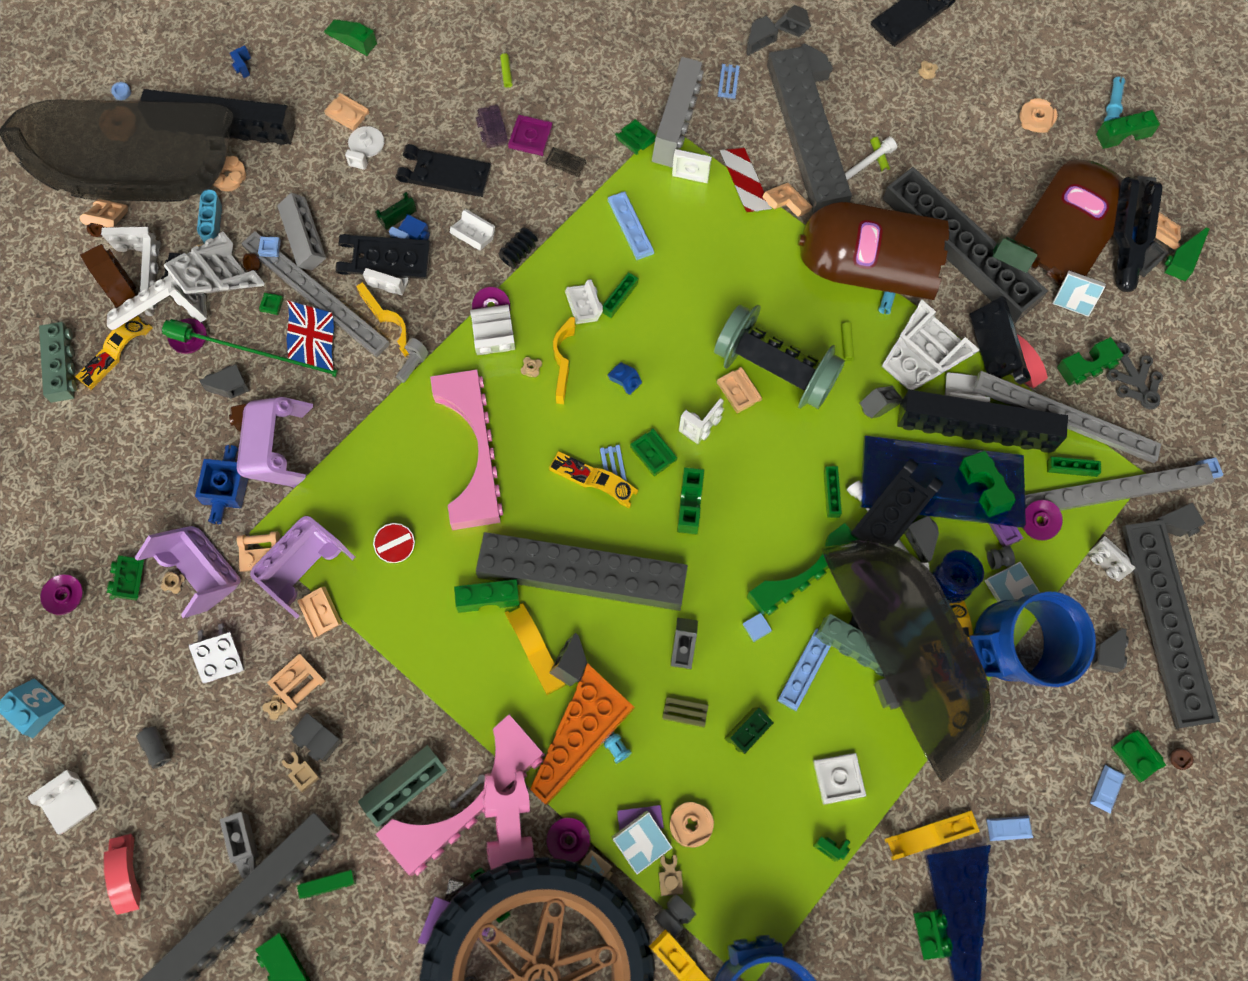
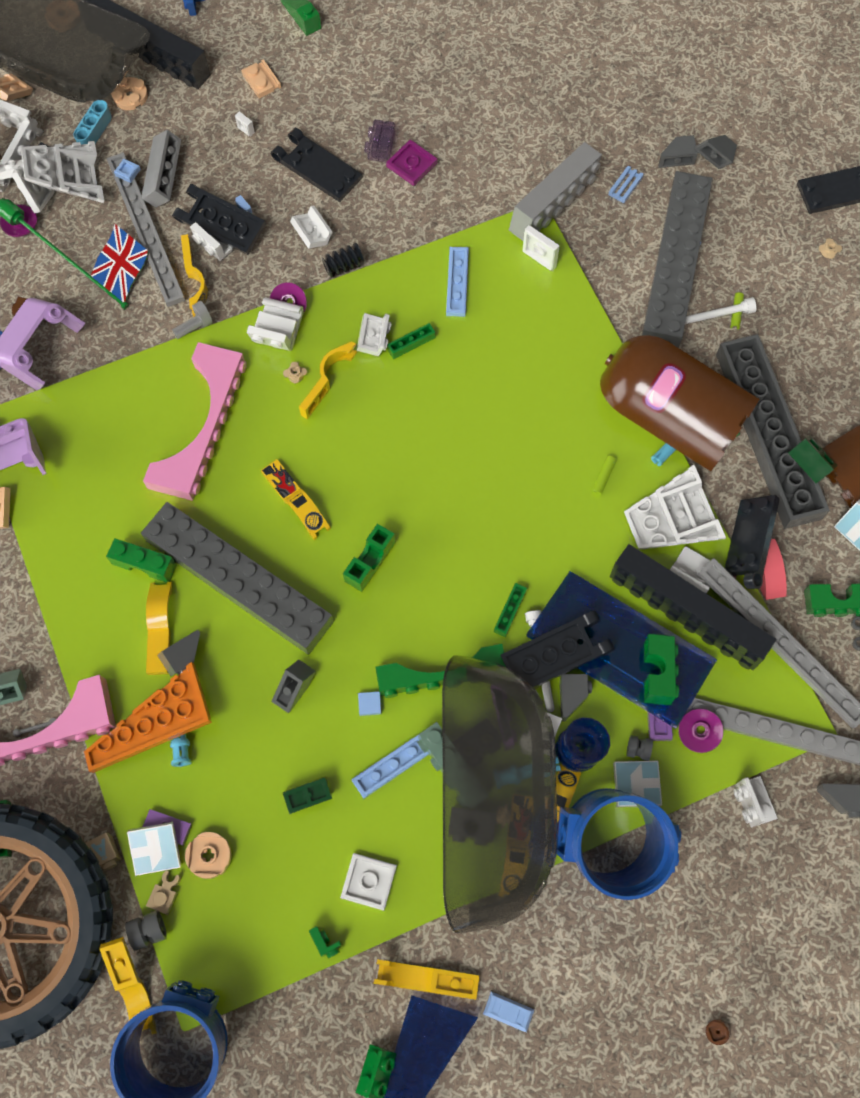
camera: 30 degrees right, 0 degrees up
(226, 382) = (29, 275): dark grey slope -> none
(251, 262) = (106, 178): reddish brown tile -> none
(271, 303) = (104, 222): green tile -> none
(366, 141) = (264, 112): white piece -> none
(393, 542) = (88, 476): red piece -> none
(396, 212) = (254, 185): dark green hinge -> none
(415, 228) = (260, 206): blue brick -> none
(506, 72) = (422, 95): lime piece -> none
(506, 809) = (49, 758): bright pink piece -> none
(557, 839) = (85, 810): magenta dish -> none
(565, 162) = (431, 199): clear smoke plate -> none
(610, 450) = (323, 479): light blue tile -> none
(626, 377) = (374, 419): blue bracket -> none
(635, 136) = (505, 200): green plate -> none
(653, 452) = (362, 498): green plate -> none
(687, 712) = (246, 739): olive tile -> none
(694, 428) = (417, 495): white bracket -> none
(739, 390) = (473, 475): light nougat plate -> none
(745, 179) = (590, 282): sticker -> none
(770, 353) = (497, 427): brick -> none
(787, 195) = (621, 313): light nougat plate -> none
(818, 63) = (719, 200): dark grey slope -> none
(880, 401) = (603, 545): dark grey slope -> none
(1073, 466) = (764, 694): green piece -> none
(1107, 789) = (627, 1023): light blue tile -> none
(1110, 654) = (701, 892): dark grey slope -> none
(1138, 755) = (675, 1007): green bracket -> none
(1170, 624) = (778, 895): dark grey plate -> none

